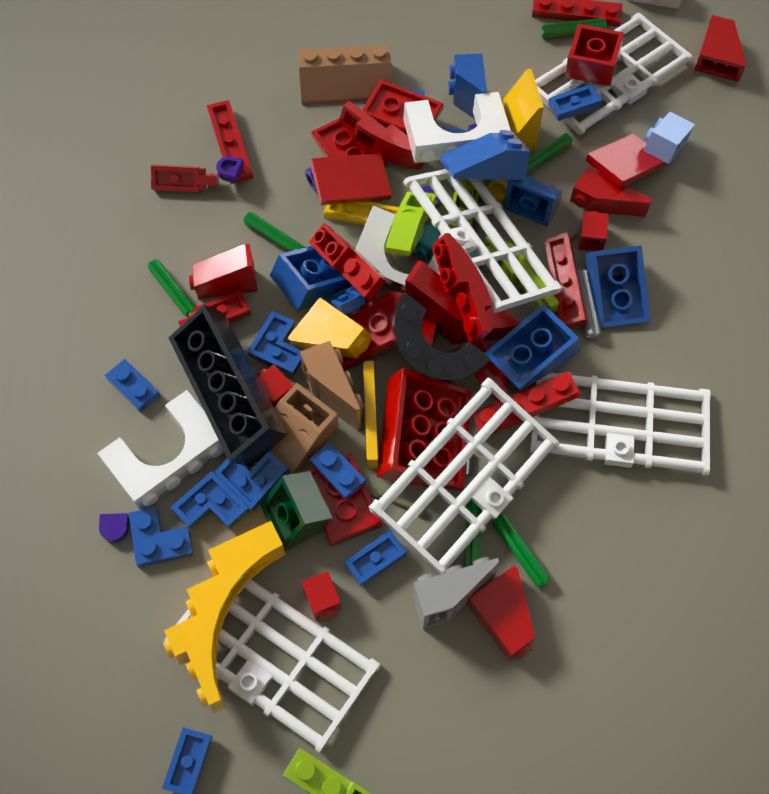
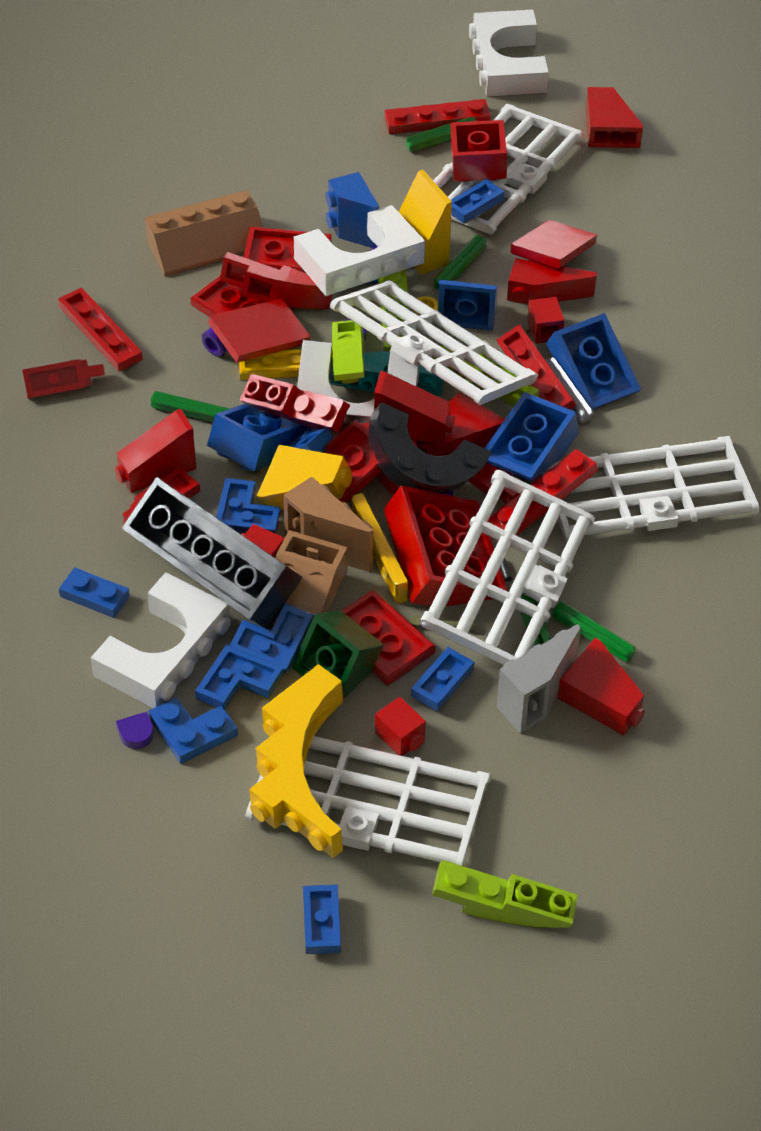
camera: 20 degrees left, 15 degrees down
(171, 287) = (96, 486): green axle -> none
(230, 168) = (115, 353): dark purple tile -> none
(337, 471) = (367, 608): blue plate -> none
(463, 278) = (437, 380): red slope -> none
(489, 157) = (412, 264): blue slope -> none
(668, 137) = (588, 212): light blue brick -> none

